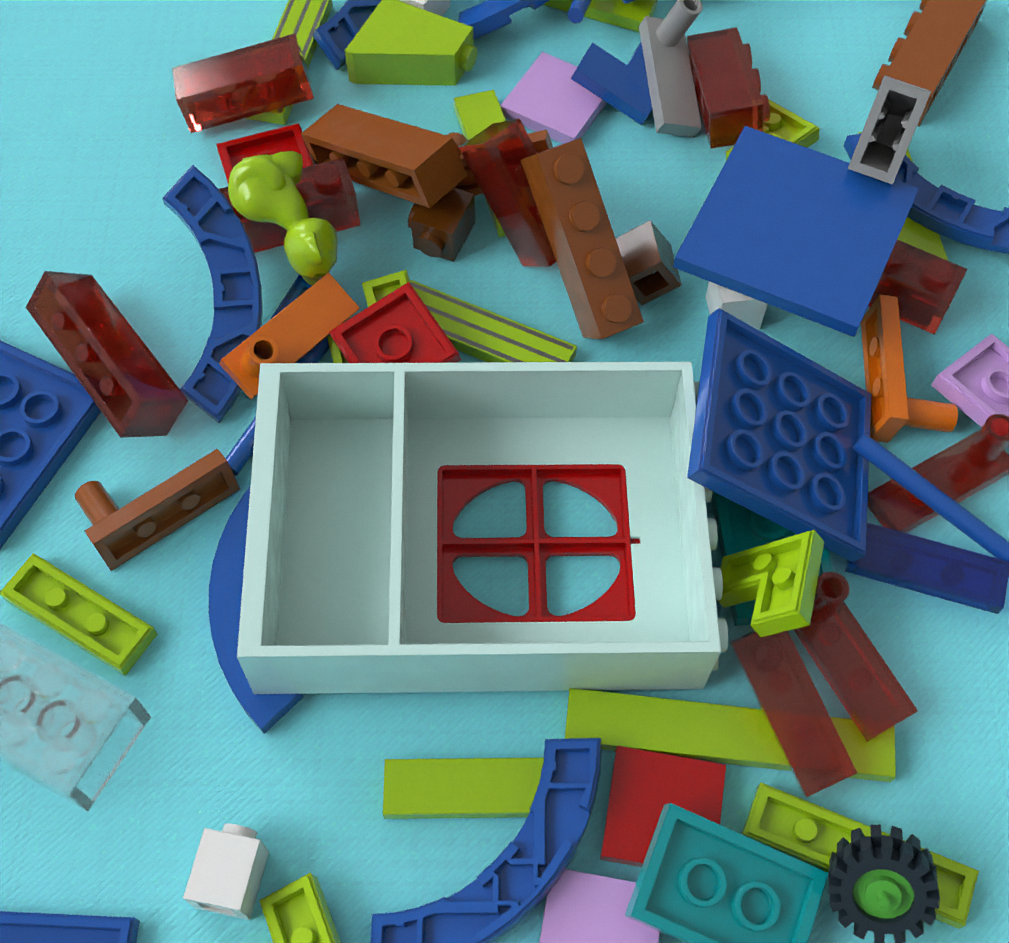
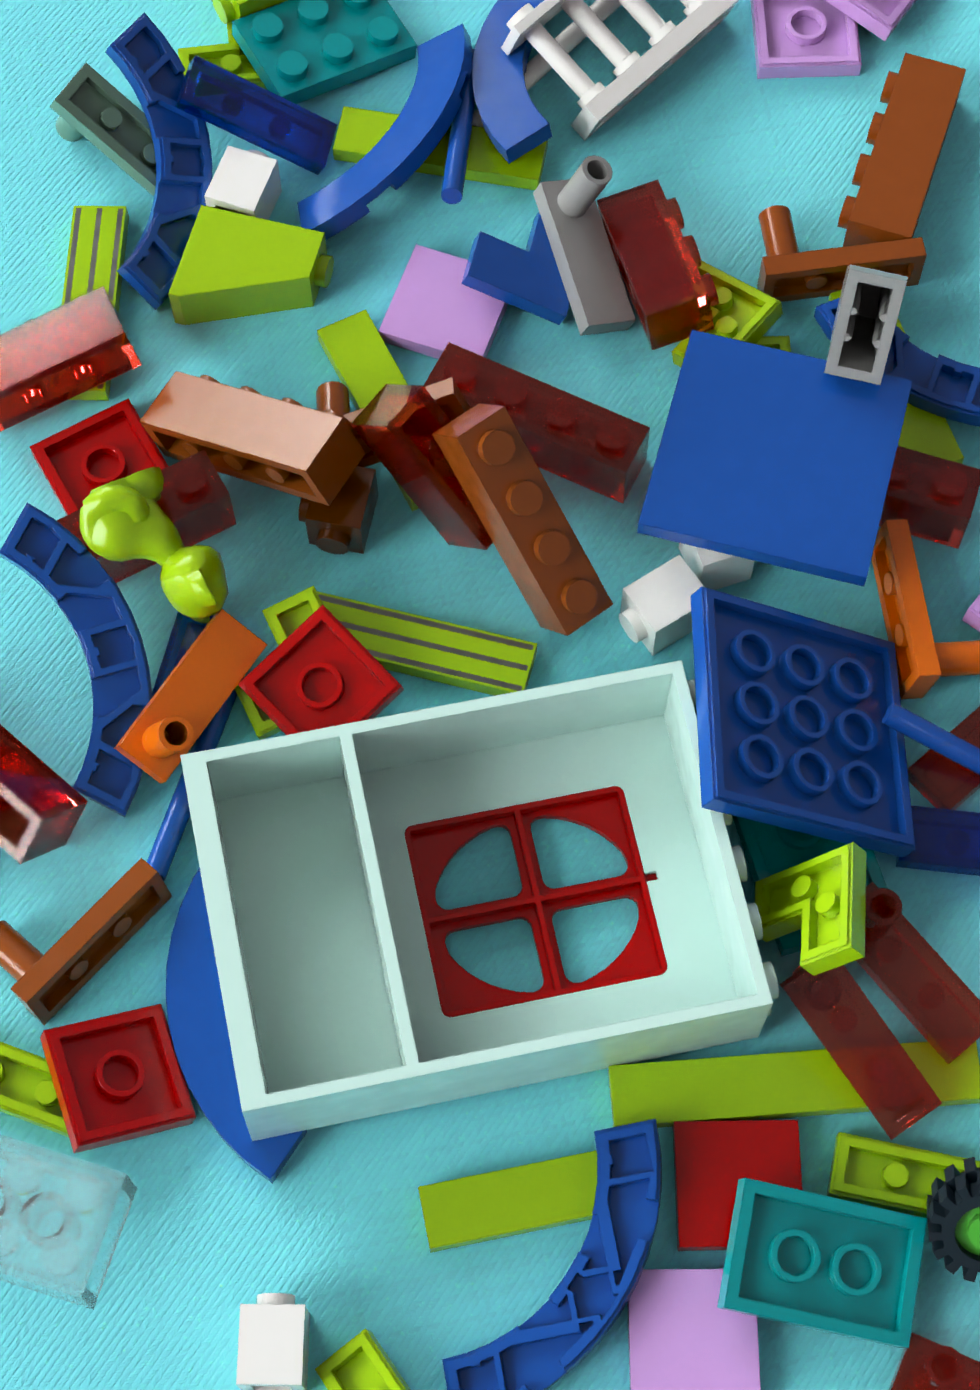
camera: 10 degrees left, 5 degrees up
(154, 621) = (117, 1078): none -> red tile
(629, 188) = (557, 427): none -> clear red brick
(643, 253) = (603, 521): brick -> none
(680, 330) = (659, 605): none -> white brick
(847, 113) = (817, 273): none -> dark orange piece

